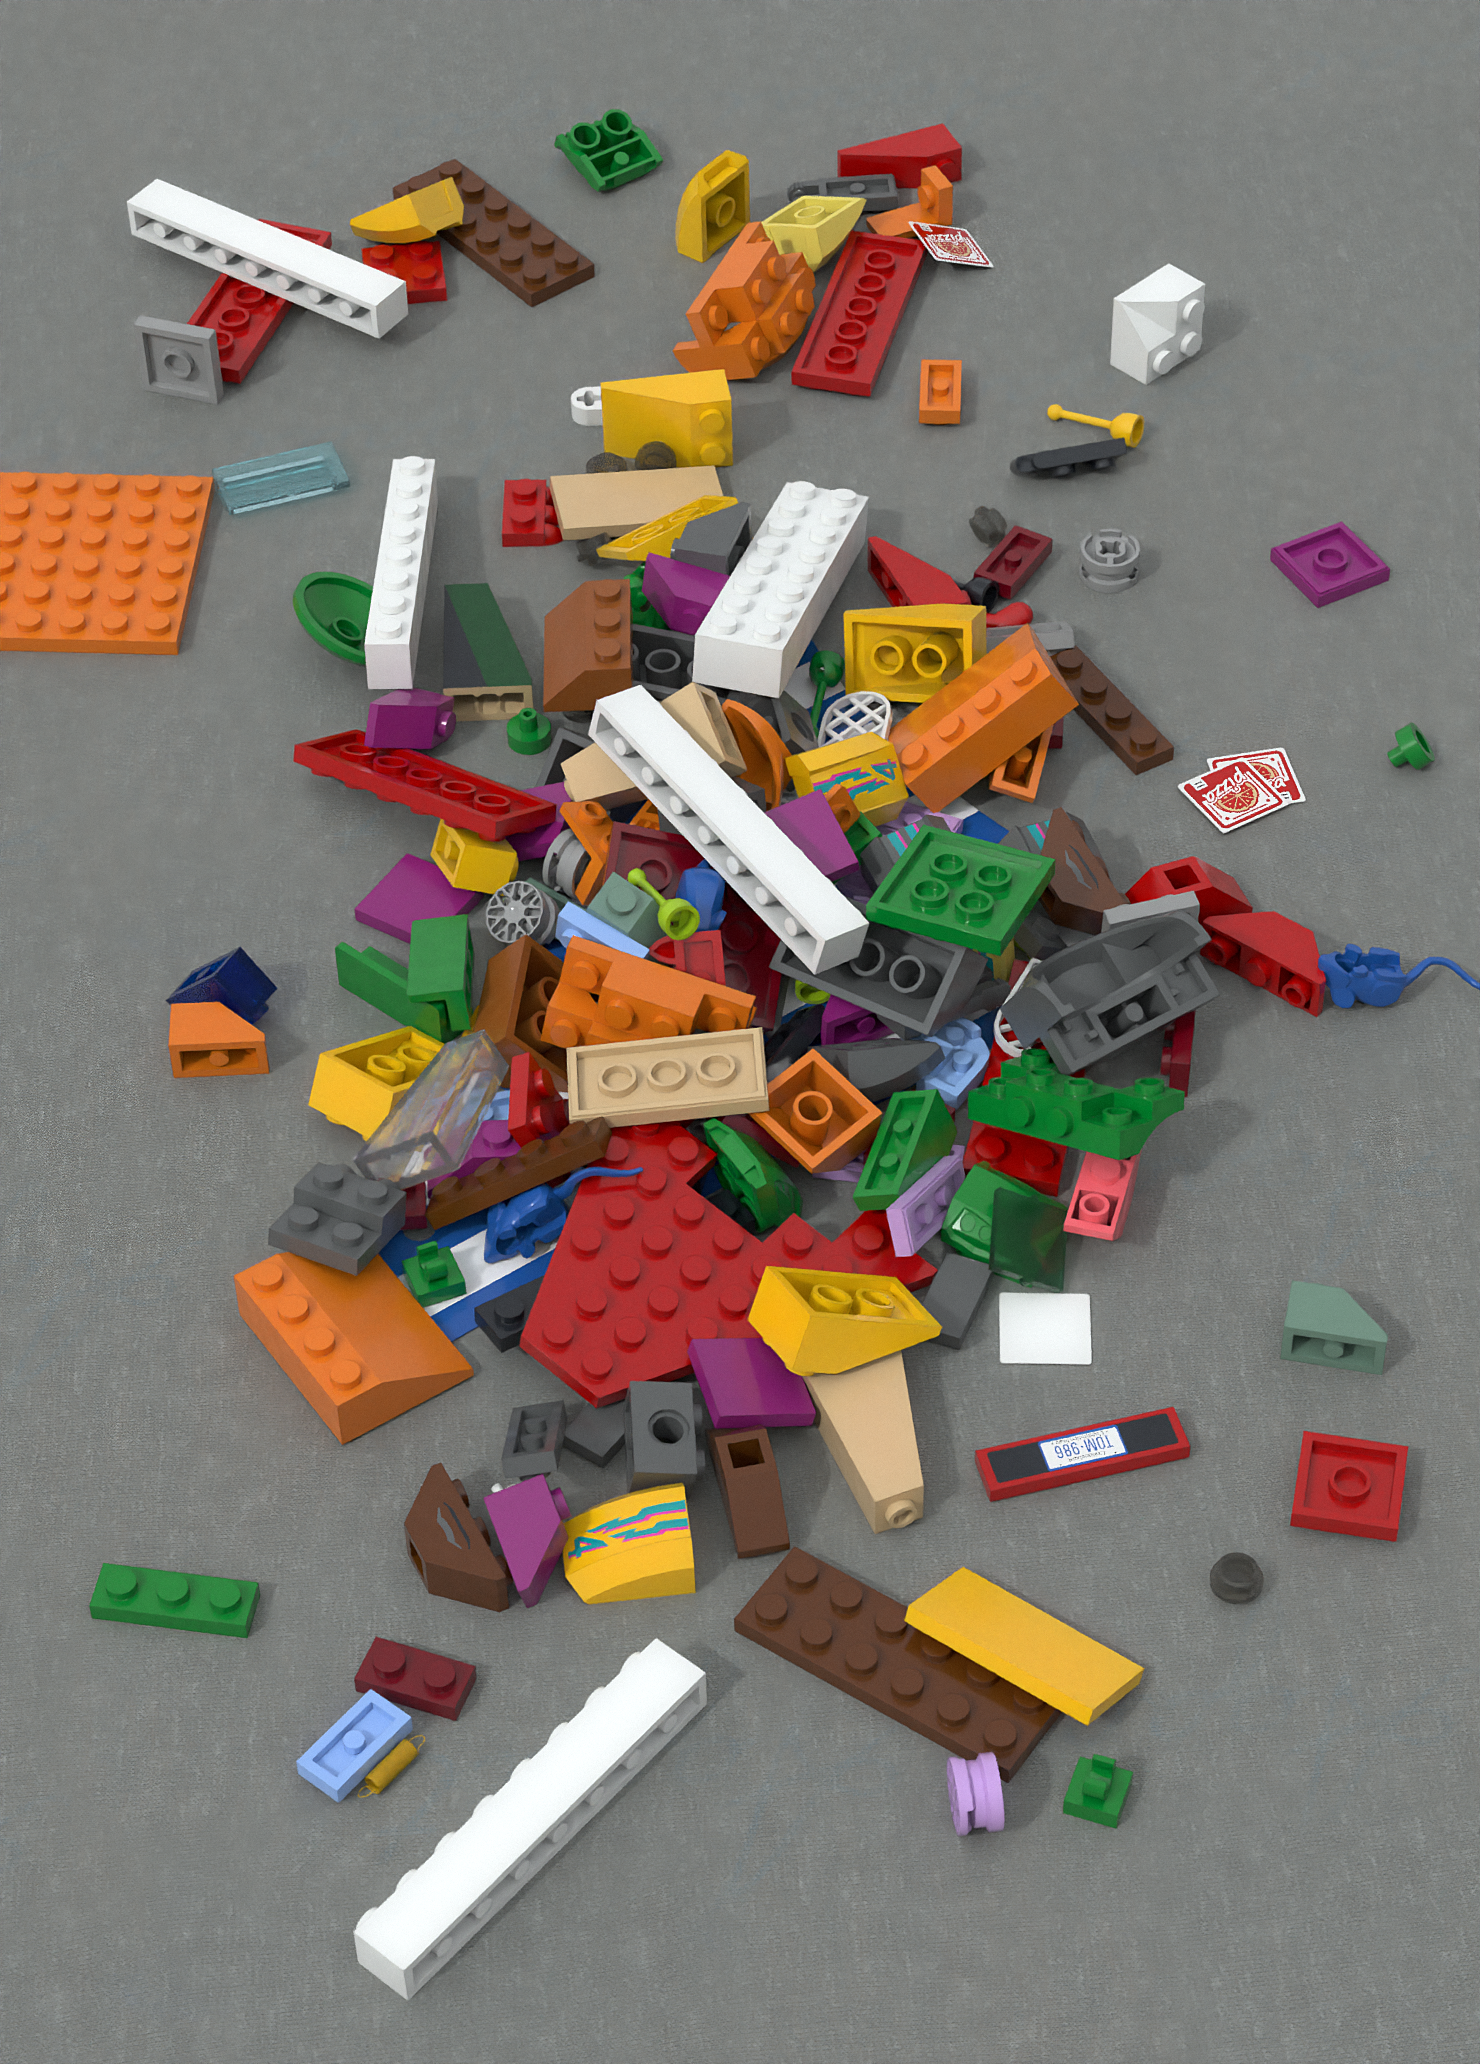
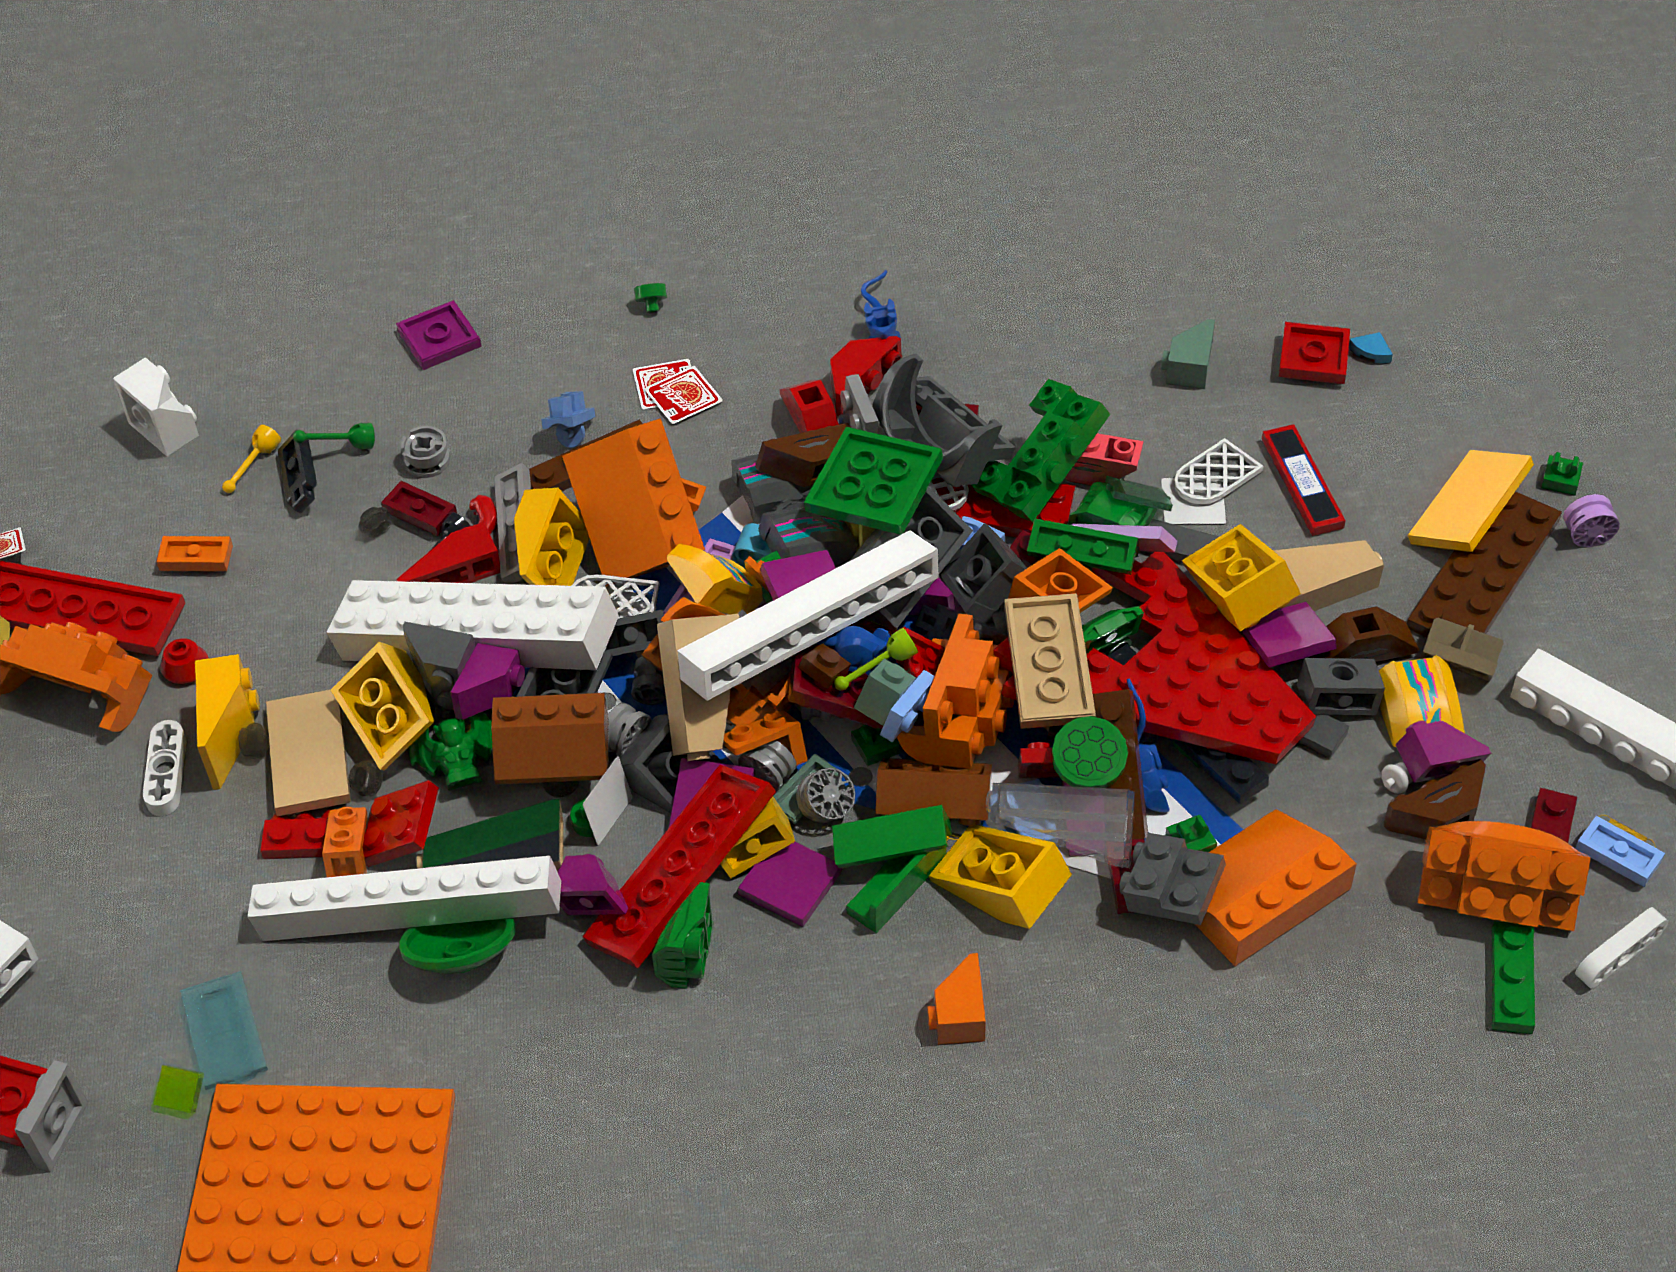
camera: 90 degrees left, 5 degrees up
(193, 1720) = (1621, 947): none -> white beam
(211, 451) = (178, 1088): none -> clear neon green tile
(231, 981) = (903, 1003): clear blue slope -> none
(283, 1570) = (1503, 873): none -> orange piece
(325, 799) = (685, 940): none -> green slope
(489, 524) = (344, 842): none -> orange bracket
(504, 567) = (399, 823): none -> red plate
(508, 1111) = (1089, 753): none -> green tile
(525, 723) = (607, 800): none -> white sticker
(534, 1440) = (1361, 749): dark grey plate -> none
(605, 463) = (255, 779): clear smoke plate -> none
(664, 860) = (824, 665): none -> reddish brown plate
(718, 1594) = (1463, 648): none -> dark tan panel
(778, 400) = (179, 660): none -> red cone
(1106, 1322) = (1255, 468): none -> white window
(1131, 503) = (360, 436): none -> green hinge
(1156, 674) = (568, 413): none -> medium blue hips
(1236, 1578) = (1393, 406): clear smoke plate -> none
(1374, 1569) = (1371, 346): none -> dark azure tile

